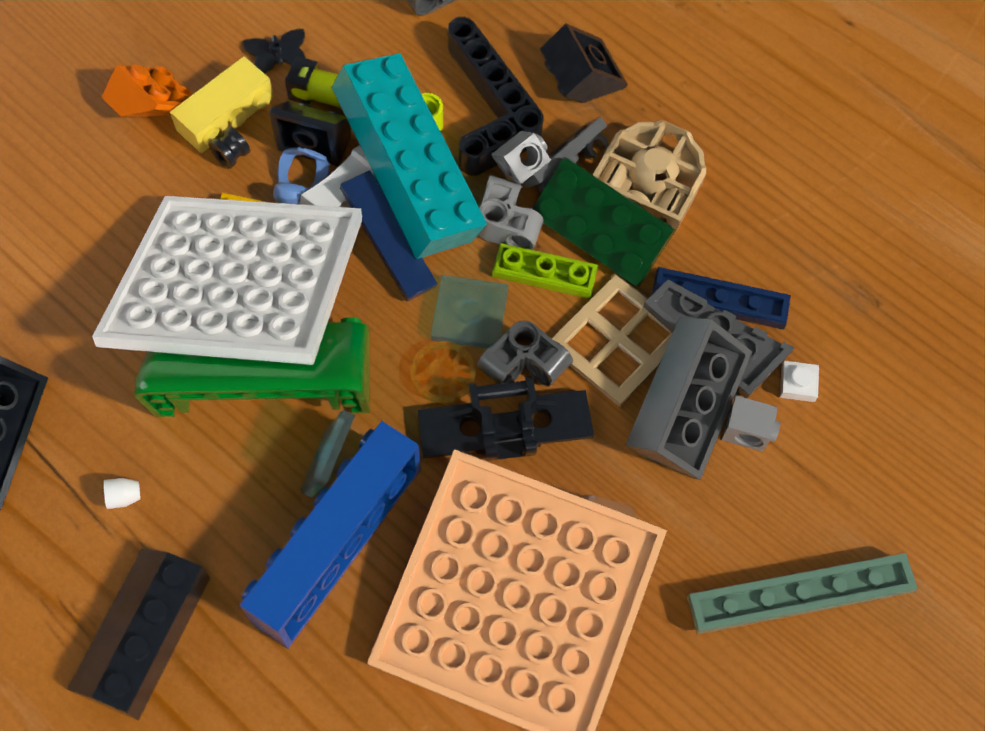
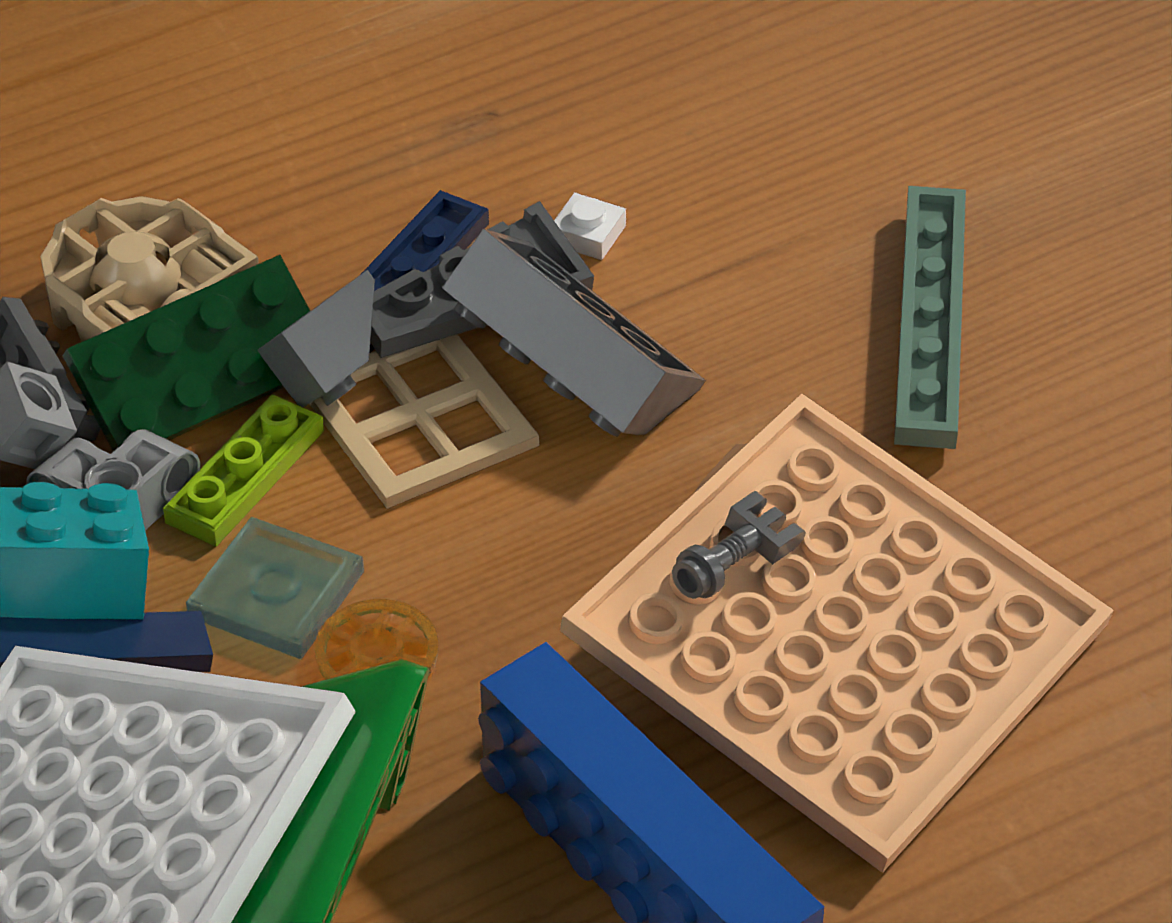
camera: 70 degrees left, 20 degrees down
(327, 453) = (489, 814): clear light blue tile -> none
(505, 433) = (536, 577): black piece -> none
(542, 358) = (397, 517): dark grey piece -> none
(546, 532) = (701, 570): none -> dark grey hinge
(626, 274) = (325, 345): none -> dark grey slope
(751, 424) = (644, 285): light grey brick -> none

